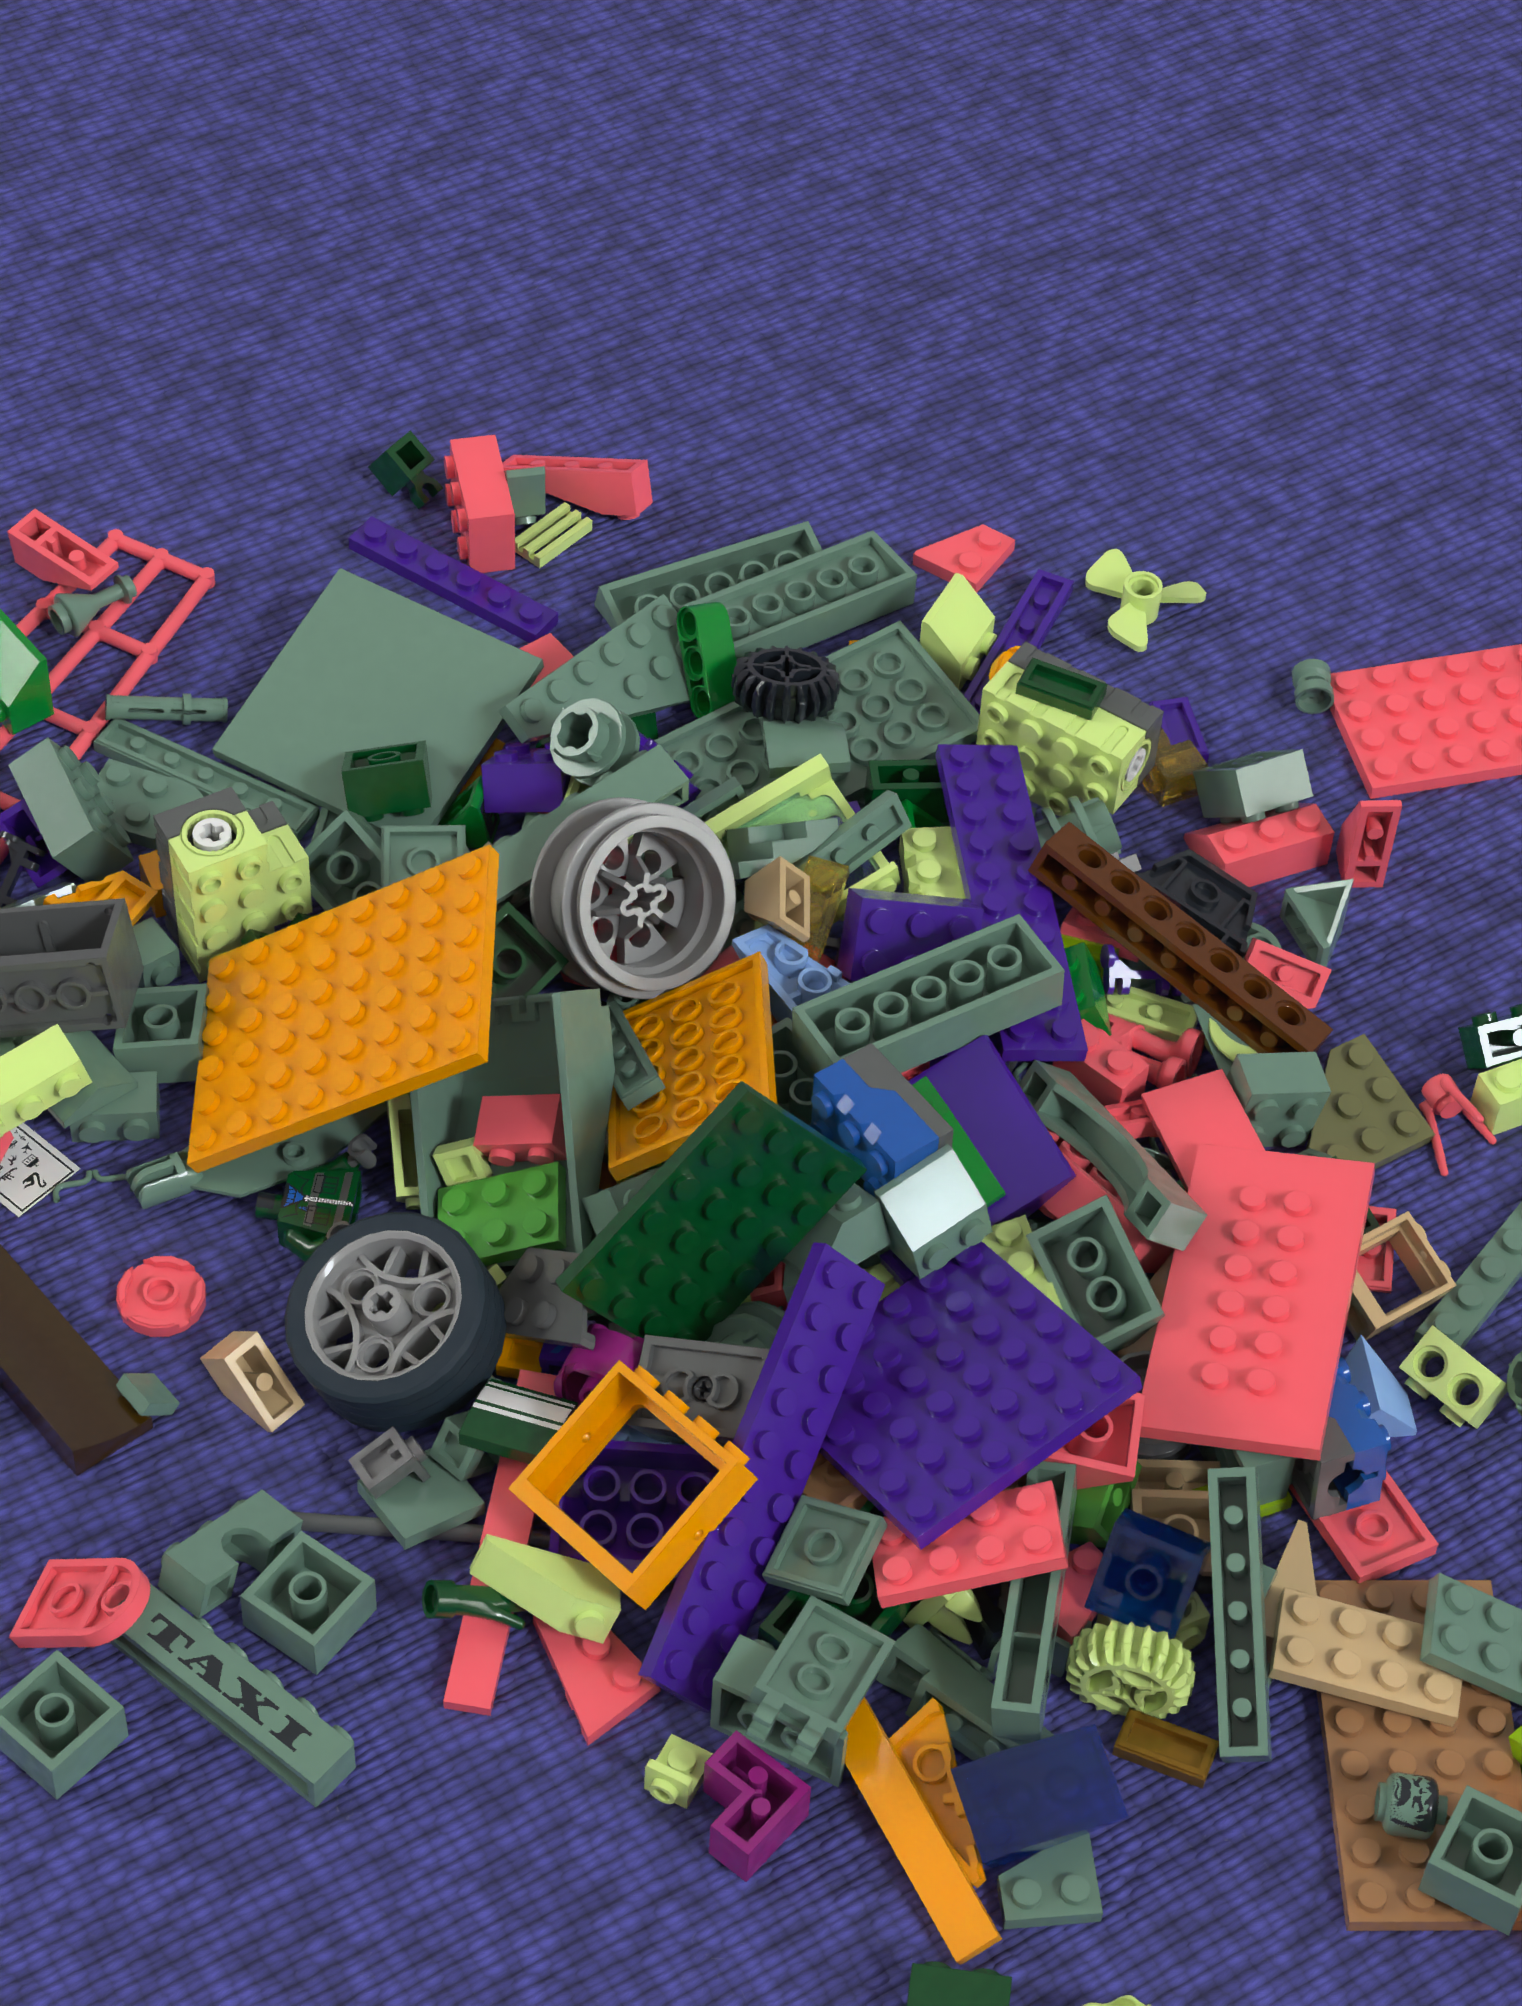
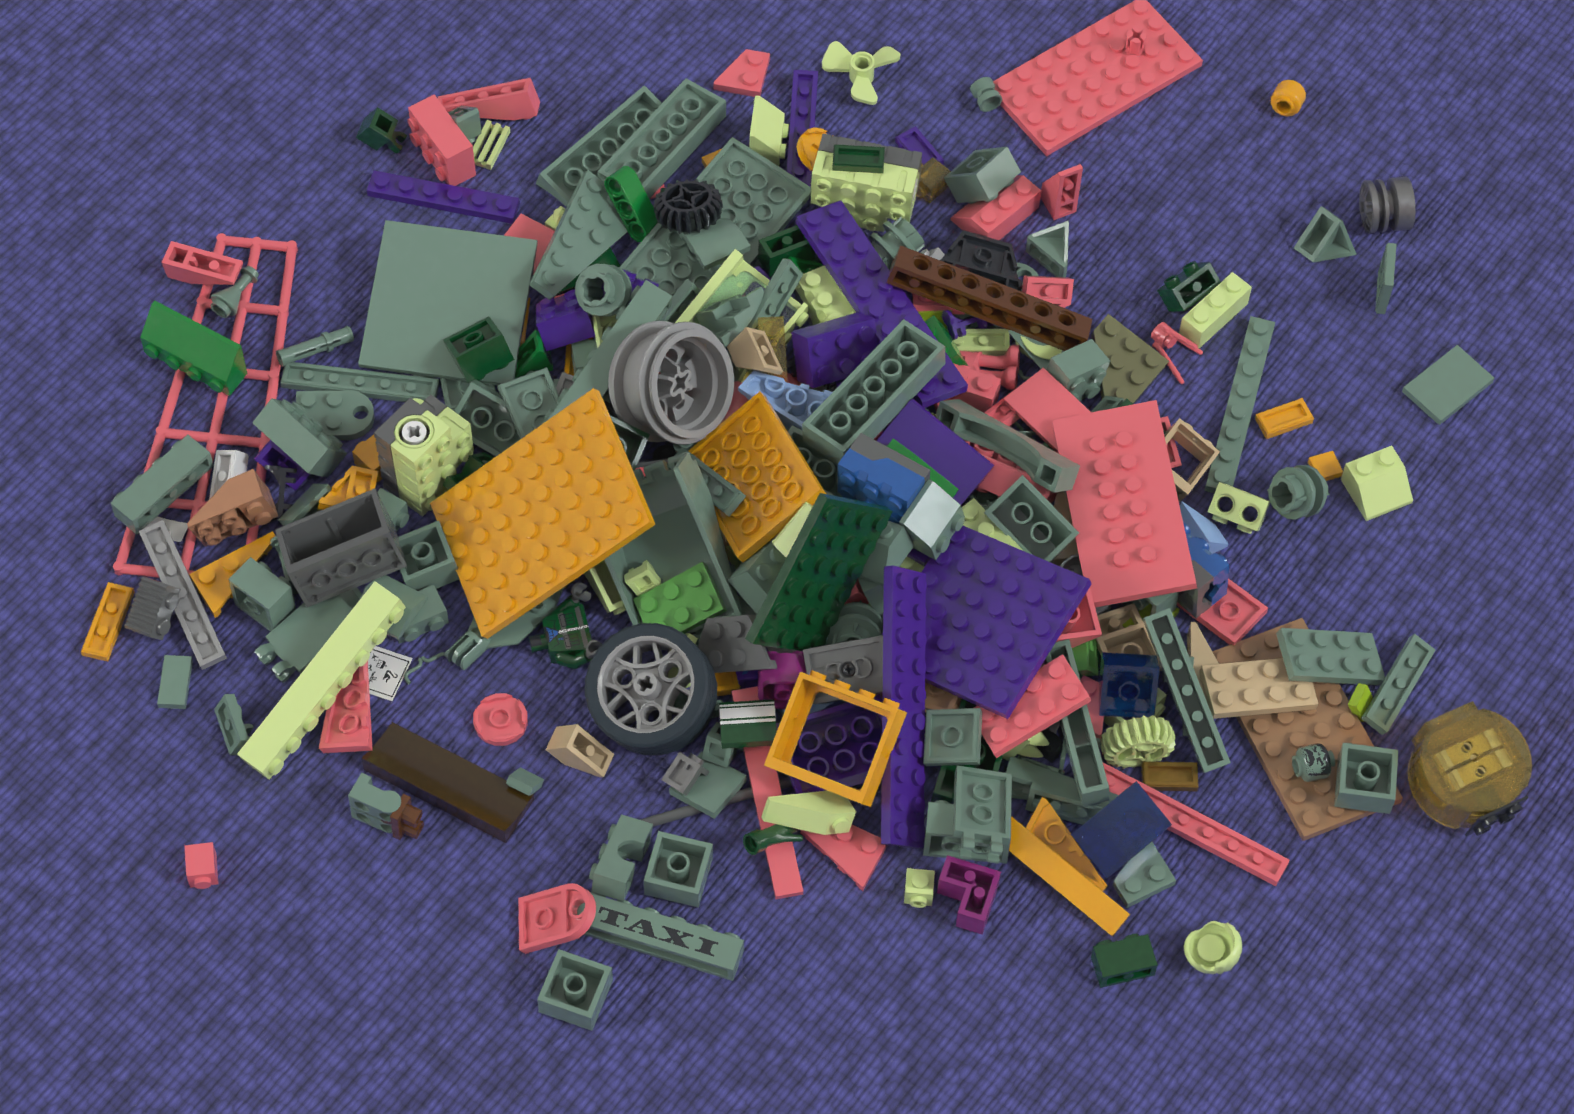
camera: 20 degrees left, 10 degrees up
(521, 1129) = (674, 548): coral brick -> none
(1186, 1854) = (1207, 832): none -> coral plate

